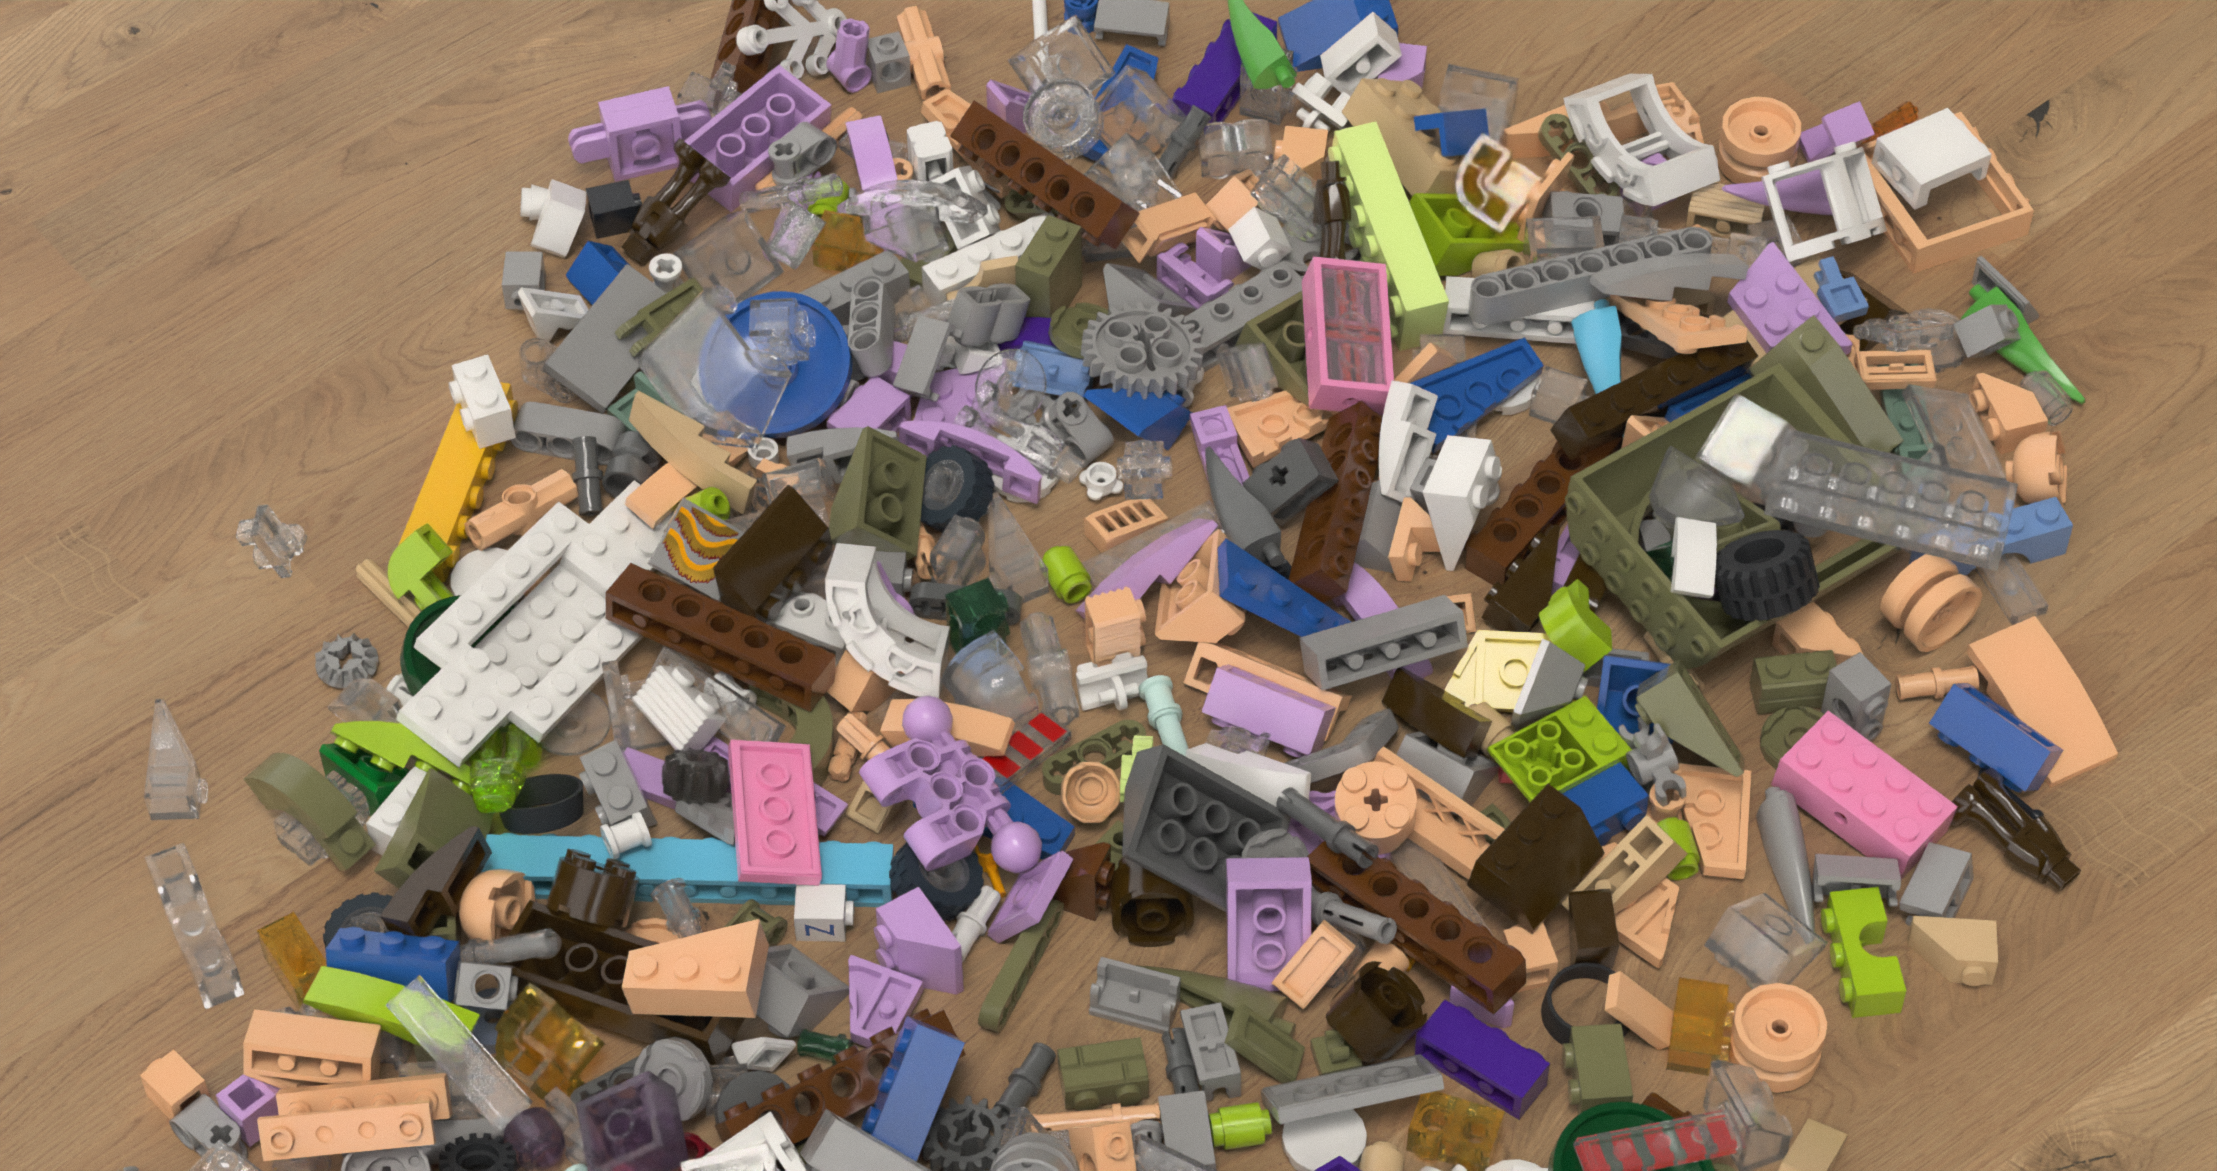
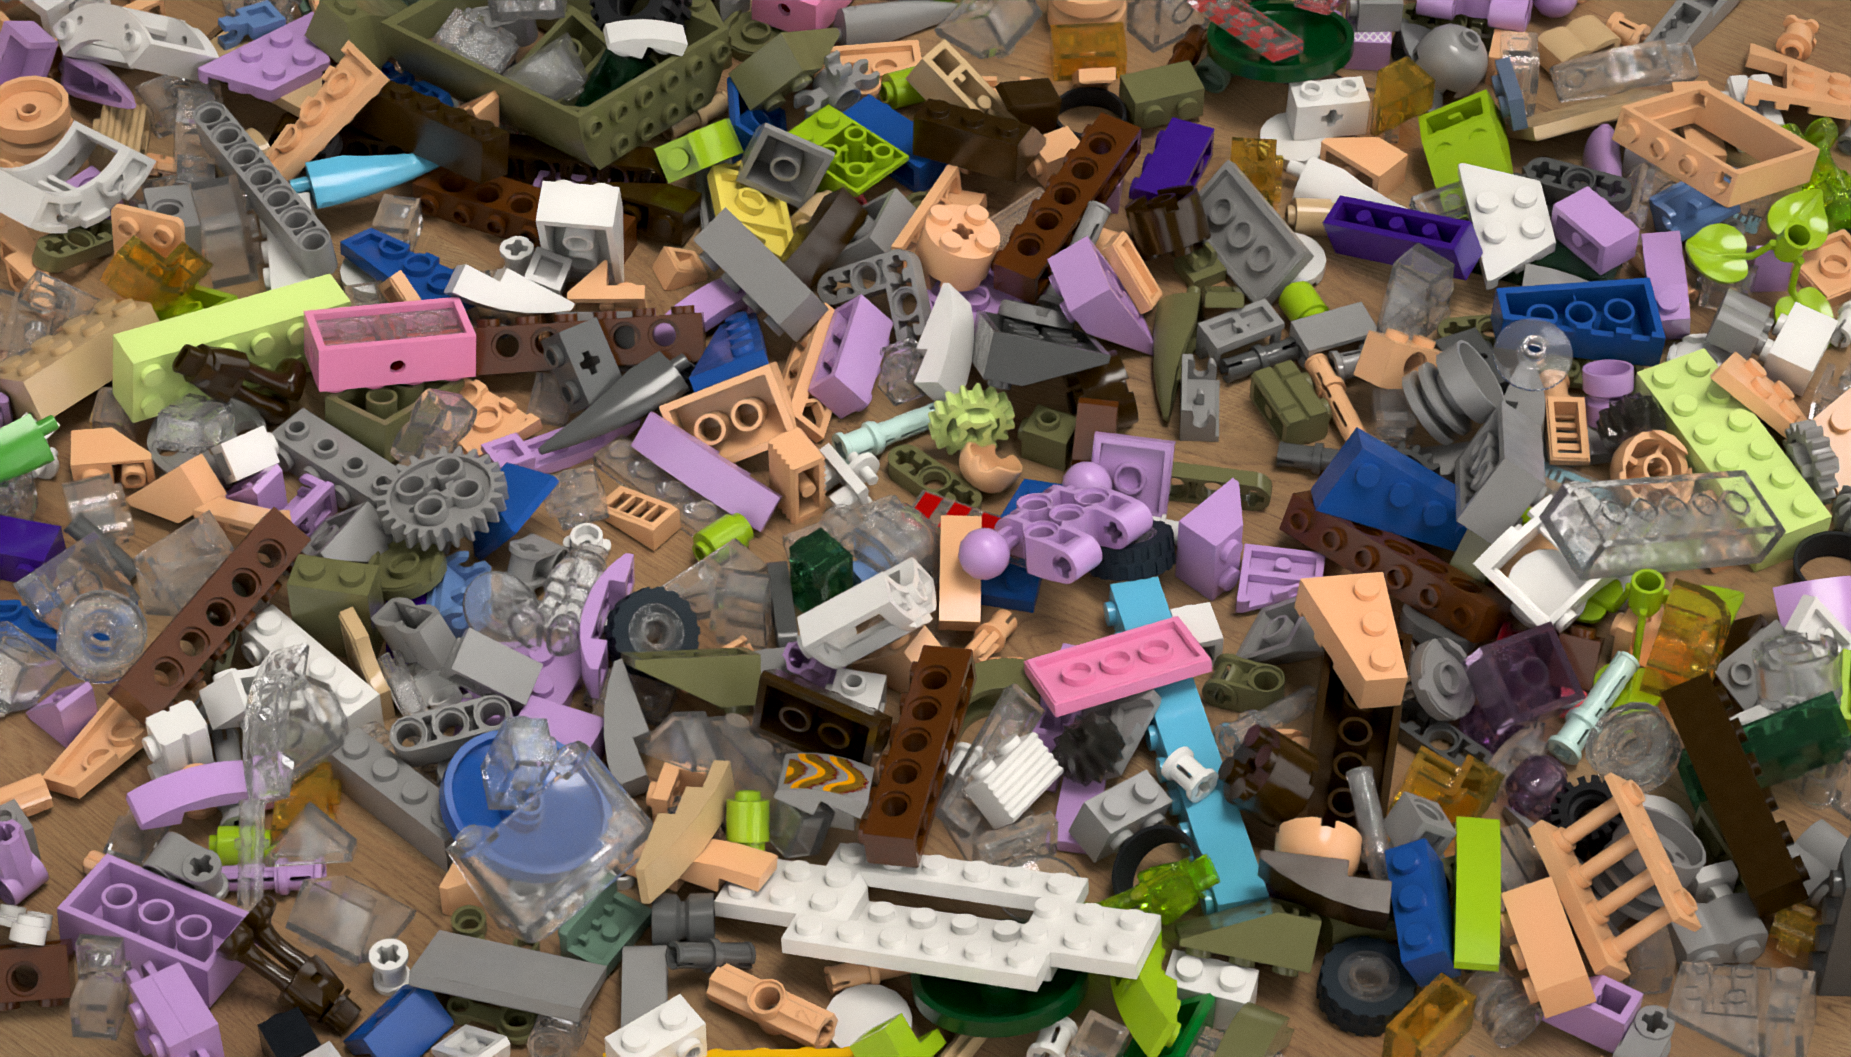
camera: 105 degrees left, 5 degrees down
(459, 1053) = (1509, 815): clear tile -> none
(658, 314) = (473, 928): olive hinge -> none
(869, 812) = (1046, 633): tan slope -> none
(1339, 835) = (1012, 247): dark grey pin -> none
(1456, 129) = (81, 302): blue panel -> none
(1496, 261) = (241, 277): tan brick -> none
(1660, 275) = (265, 123): light grey slope -> none

